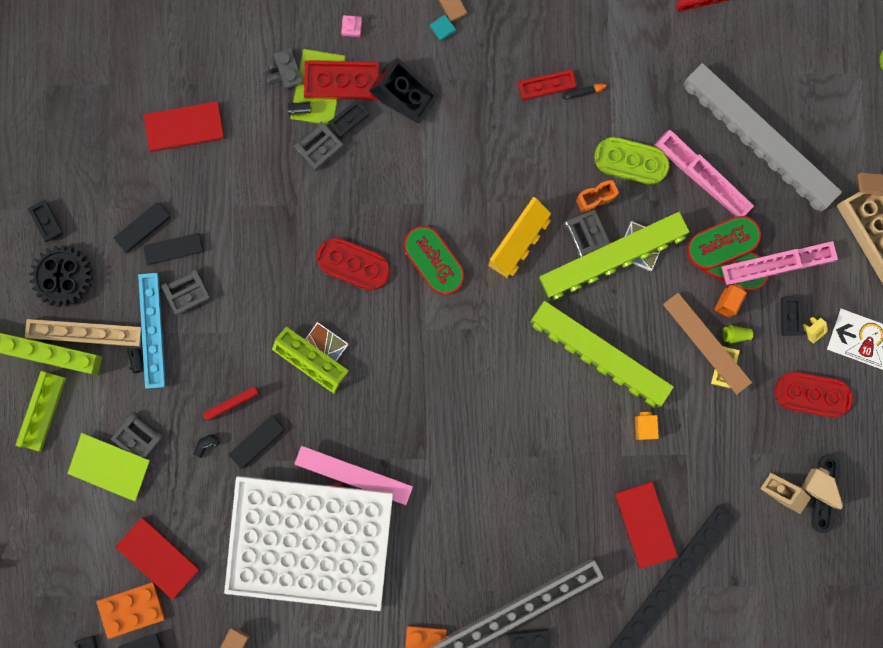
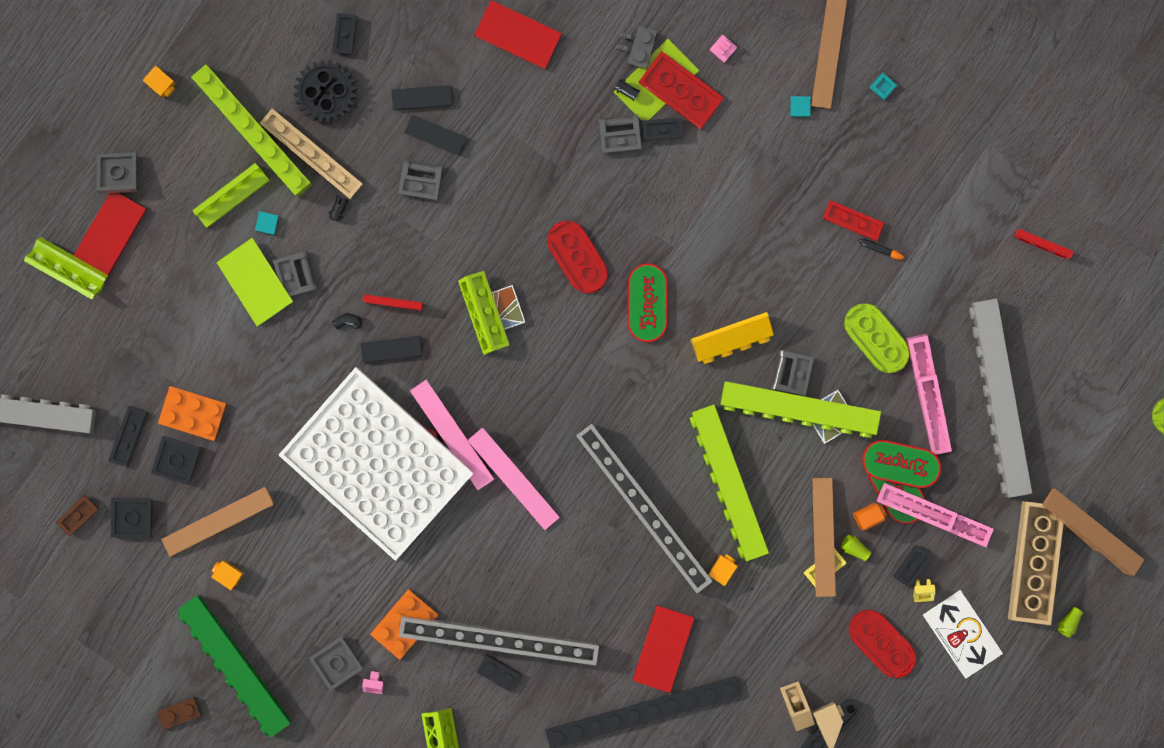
camera: 35 degrees right, 5 degrees up
(86, 413) = (267, 223): none -> teal tile
(152, 330) = (369, 192): medium azure plate -> none
(157, 558) = (243, 386): red tile -> none
(403, 91) = (726, 139): black slope -> none
(428, 474) = (513, 478): none -> bright pink slope
(550, 423) = (644, 508): none -> light grey brick
(601, 195) = (829, 350): orange brick -> none

